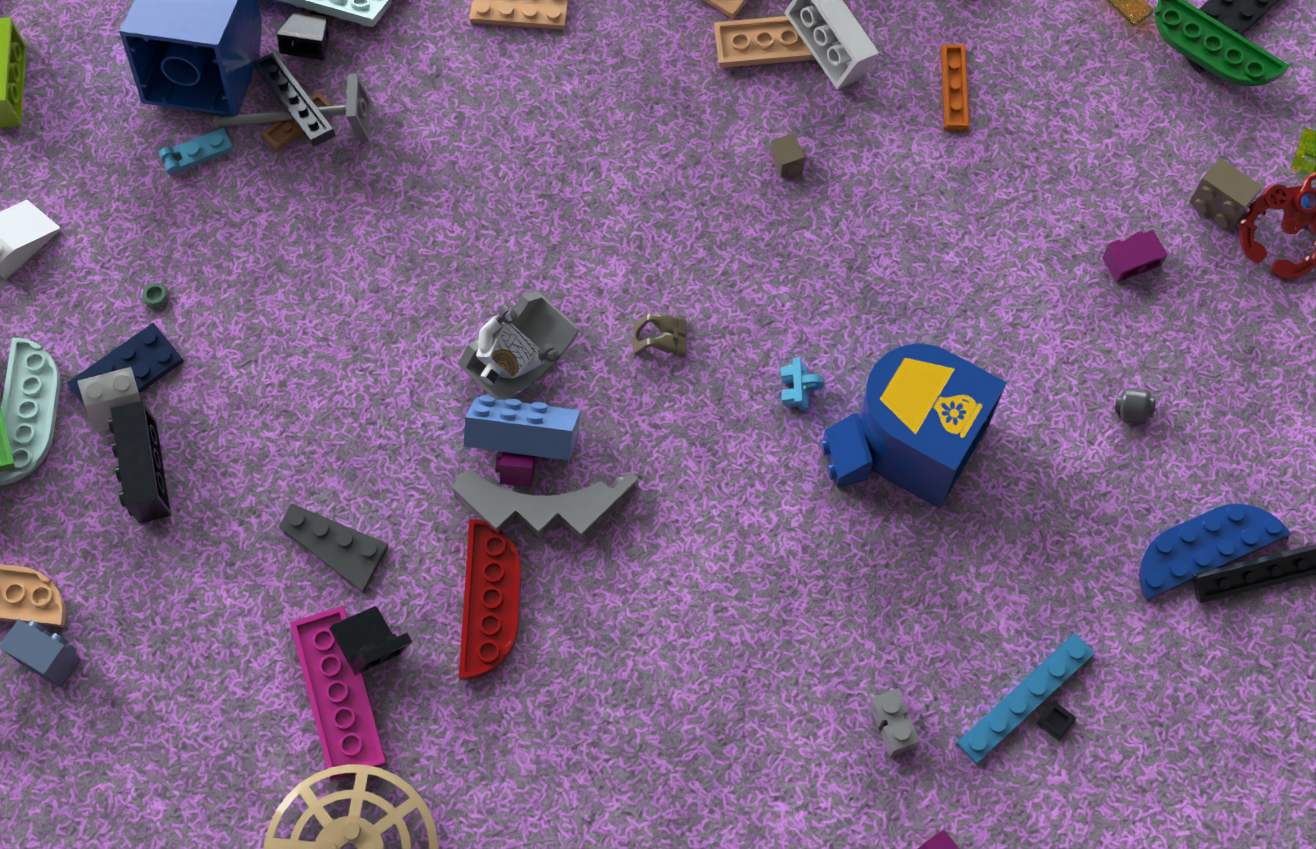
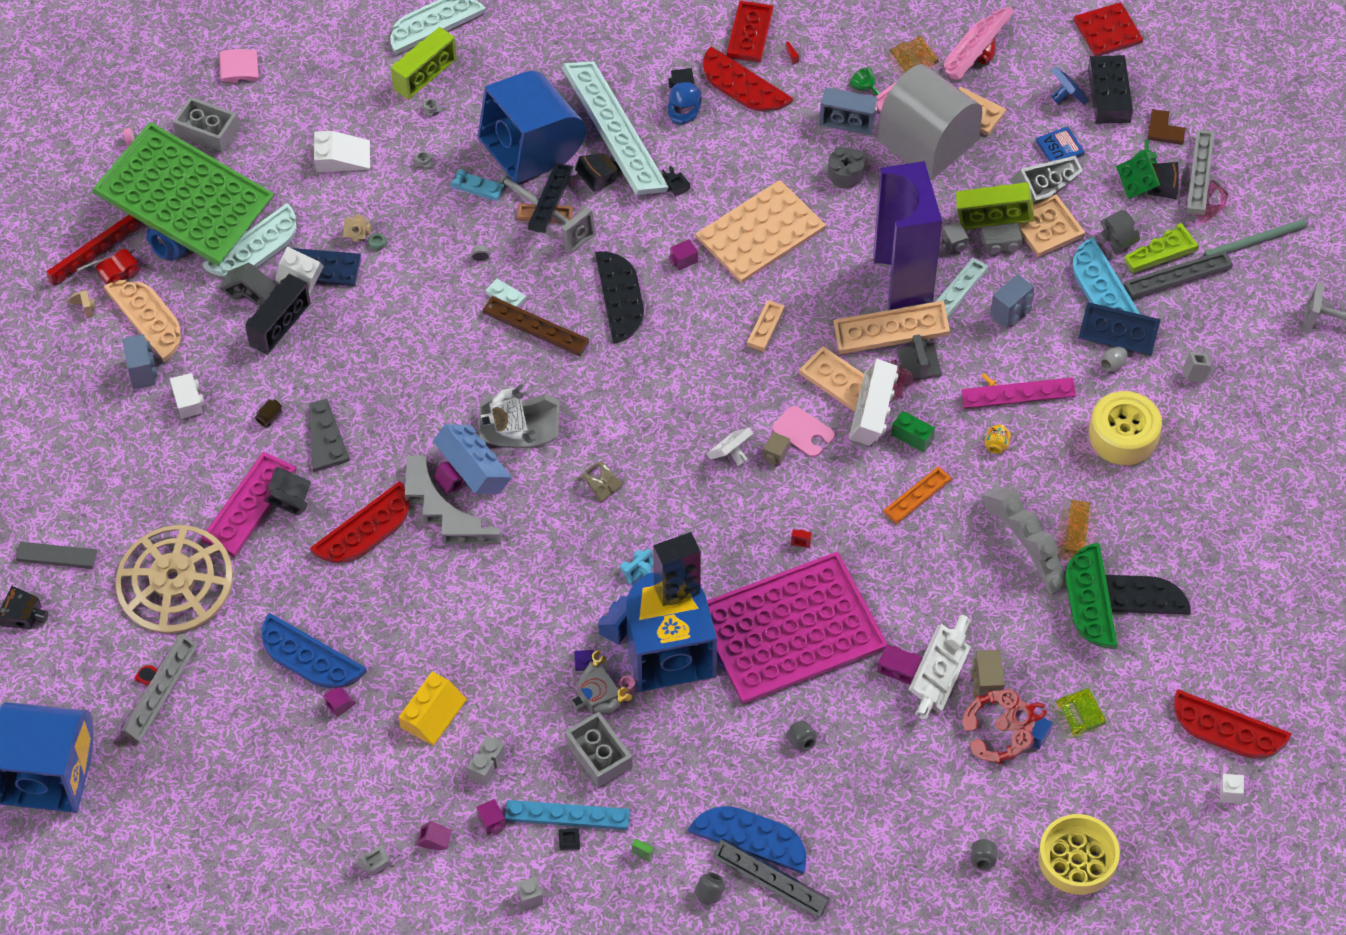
camera: 45 degrees right, 10 degrees down
(53, 107) = (431, 103): none -> light grey plate
(66, 457) = (249, 282): none -> dark grey brick
(107, 166) = (423, 155): none -> light grey plate
(115, 291) = (351, 231): none -> tan brick
(136, 640) = (186, 395): none -> white brick
(246, 575) = (268, 413): none -> dark brown brick
(280, 215) = (480, 253): none -> tile
(352, 234) = (506, 293): none -> light aqua plate
(420, 239) = (536, 326): none -> reddish brown plate
(465, 138) = (620, 295): none -> black plate
(483, 47) = (683, 254): none -> magenta brick
(586, 794) = (308, 655): none -> blue plate
(638, 49) = (765, 326): none -> light nougat plate
(676, 810) = (338, 701): none -> magenta brick
(746, 188) = (730, 445): none -> white tile
(778, 723) = (432, 708): none -> yellow slope
(782, 116) = (801, 429): none -> bright pink piece
(857, 526) = (582, 659): none -> dark purple plate
(889, 29) = (913, 431): none -> green brick
(910, 218) = (801, 538): none -> red plate
(911, 543) = (598, 690): none -> light grey torso
(922, 345) = (677, 569): none -> black brick
(930, 507) = (627, 680): none -> bright pink plate
(966, 776) = (491, 817): none -> magenta brick
(984, 603) = (598, 749): none -> light grey brick
(1008, 304) = (793, 627): none -> dark pink plate
(1095, 816) = (529, 893): none -> light grey brick
(1097, 26) = (1025, 525): none -> light grey arch
(1137, 661) = (642, 850): none -> bright green tile
(1172, 224) = (940, 667): none -> white plate
(1242, 636) = (709, 888): none -> dark grey head

